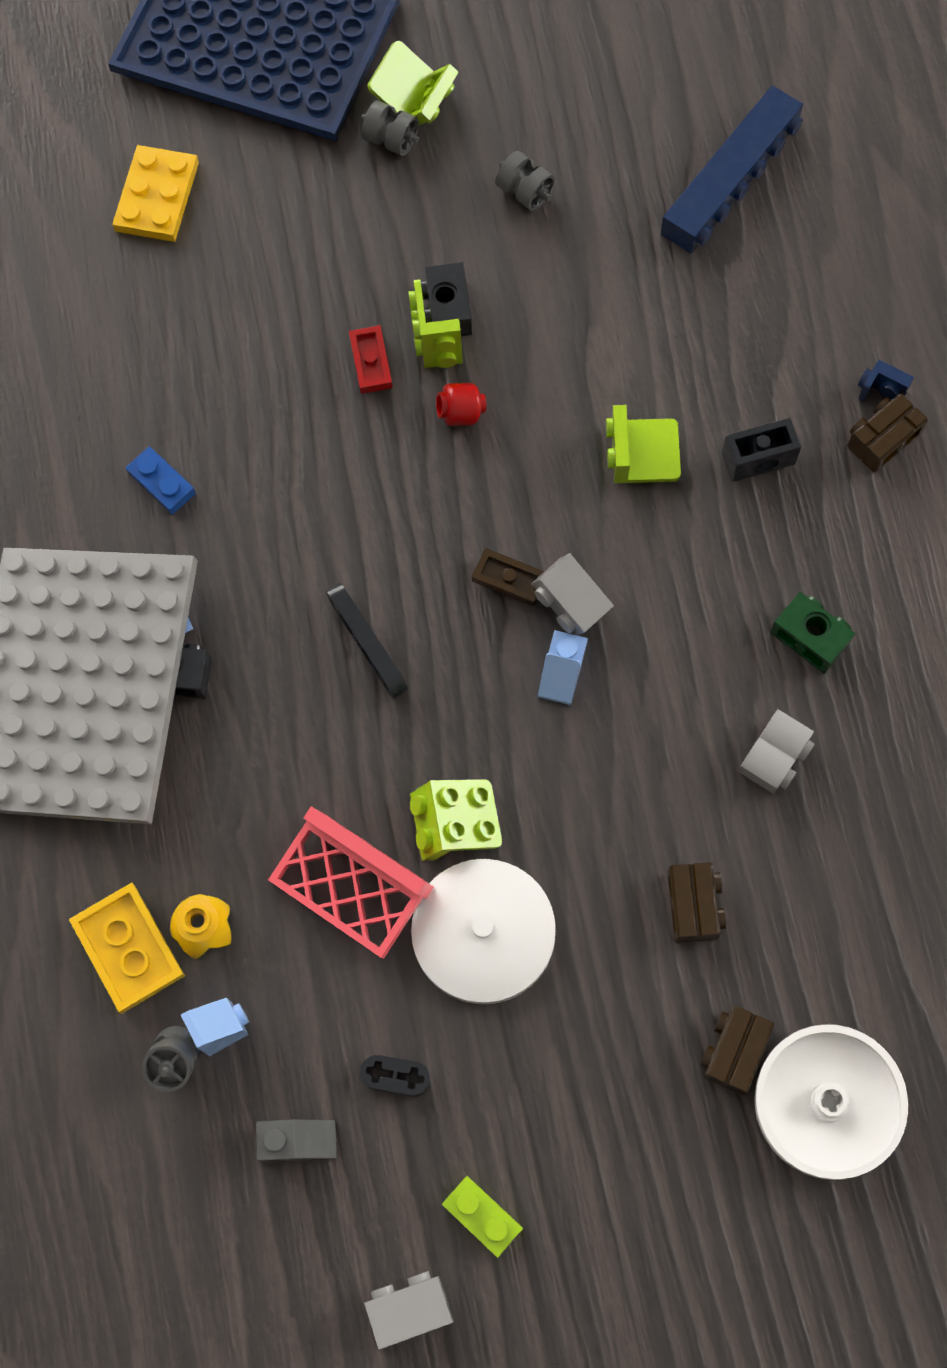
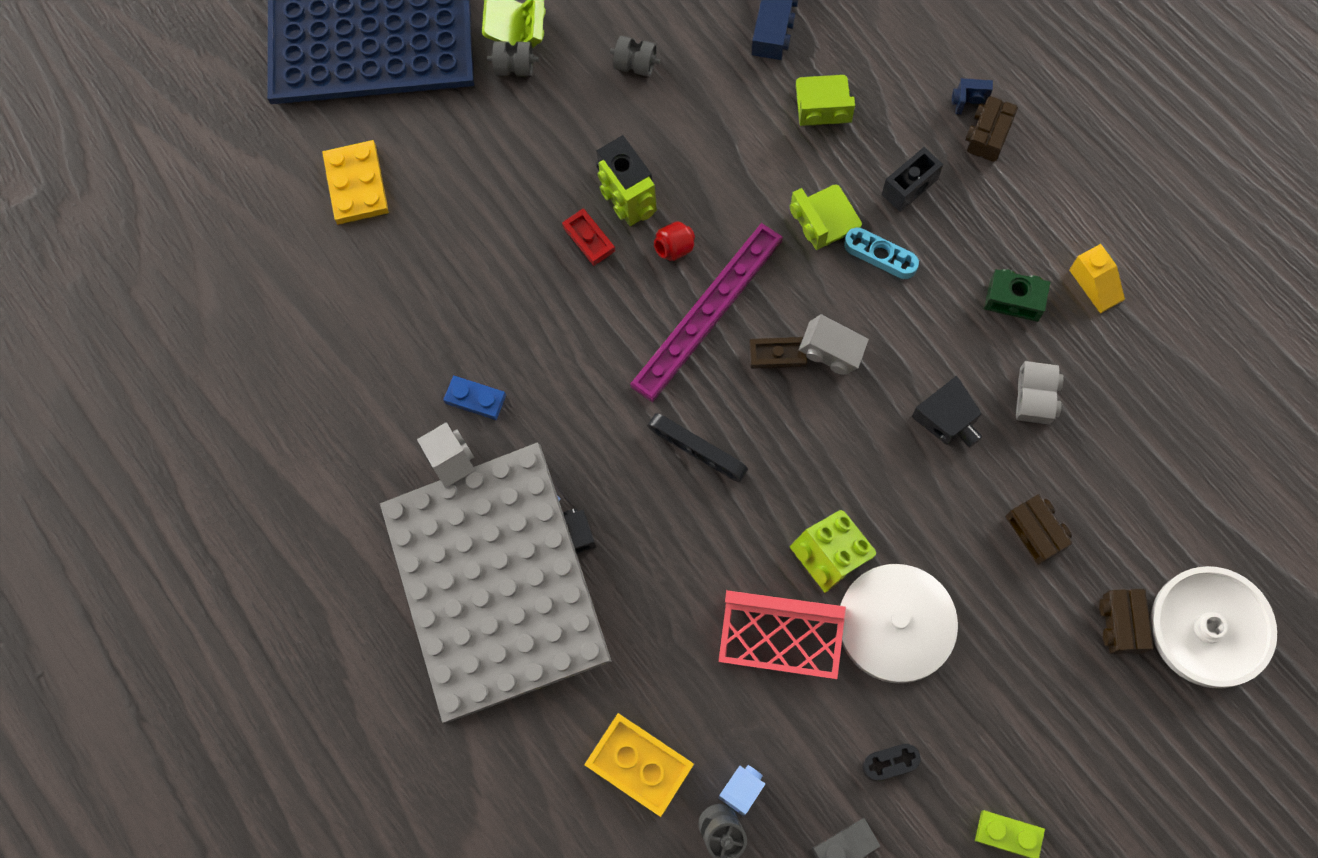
camera: 25 degrees left, 0 degrees up
(94, 526) = (447, 454): none -> light grey brick
(212, 934) = (686, 734): yellow piece -> none
(457, 498) = (706, 312): none -> magenta tile
(562, 667) = (851, 402): light blue slope -> none
(663, 505) = (878, 242): none -> medium azure beam
(663, 730) = (950, 414): none -> black torso
(711, 318) = (824, 100): none -> lime bracket
(918, 655) = (1098, 278): none -> yellow slope

